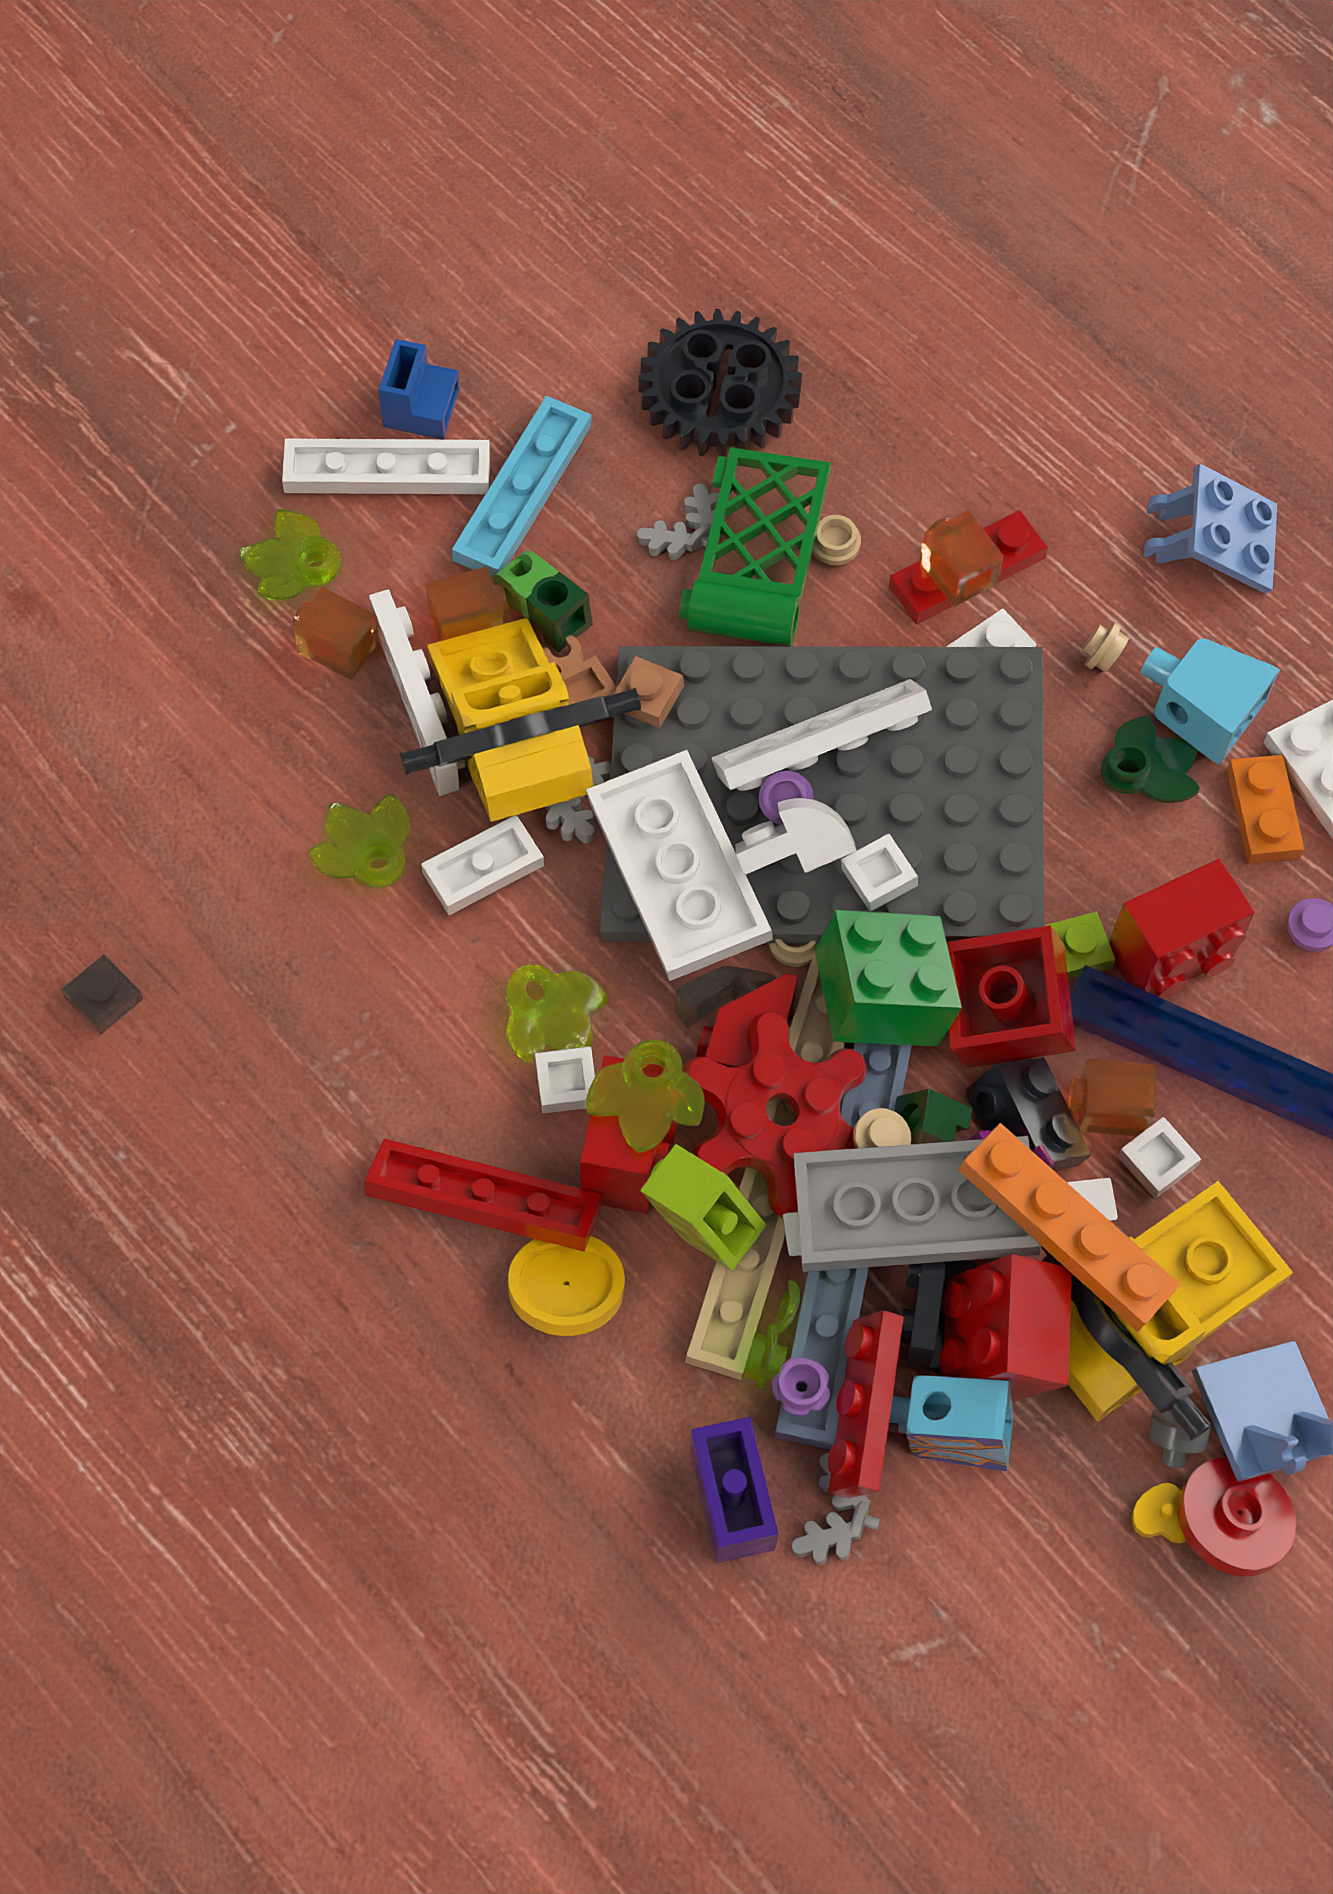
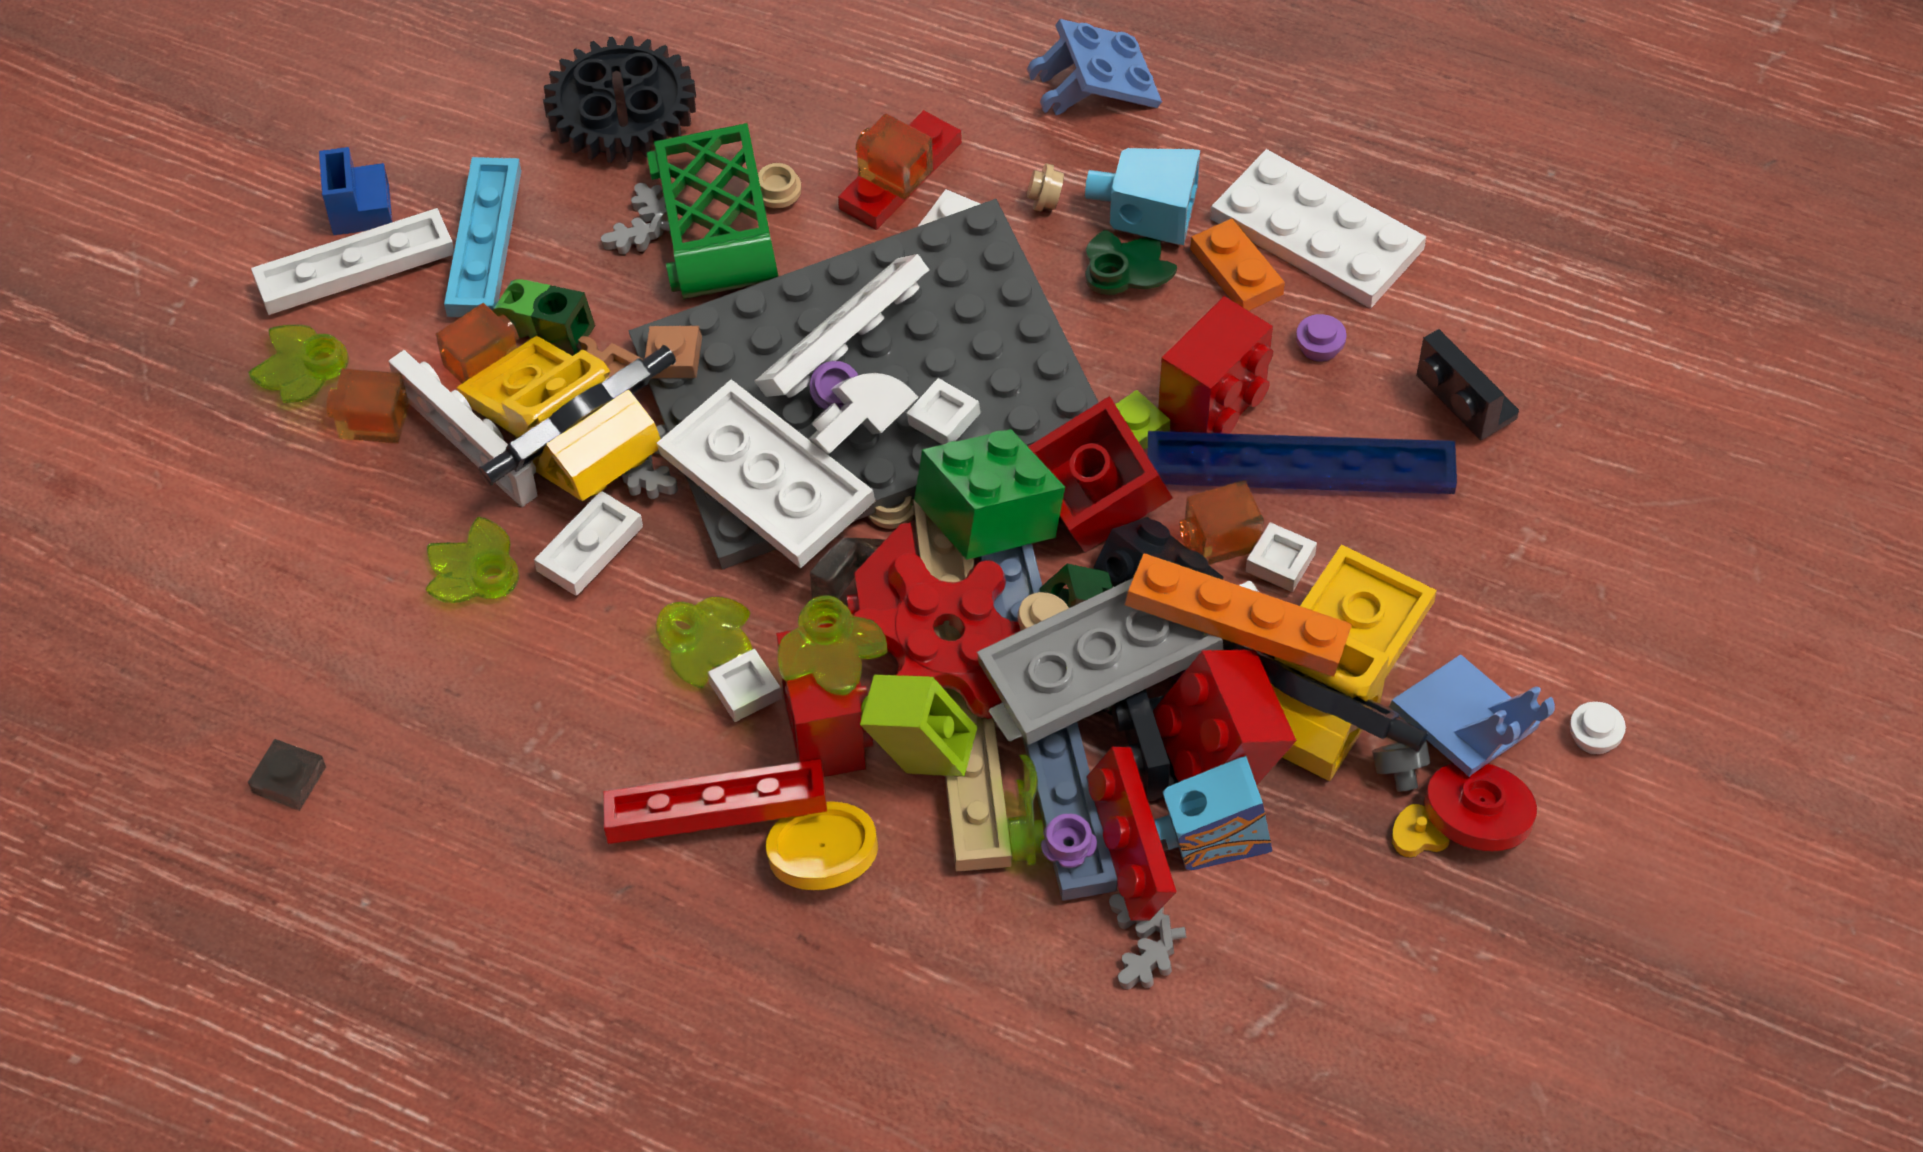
camera: 20 degrees left, 10 degrees down
(733, 1490) = (1049, 947): dark purple brick -> none

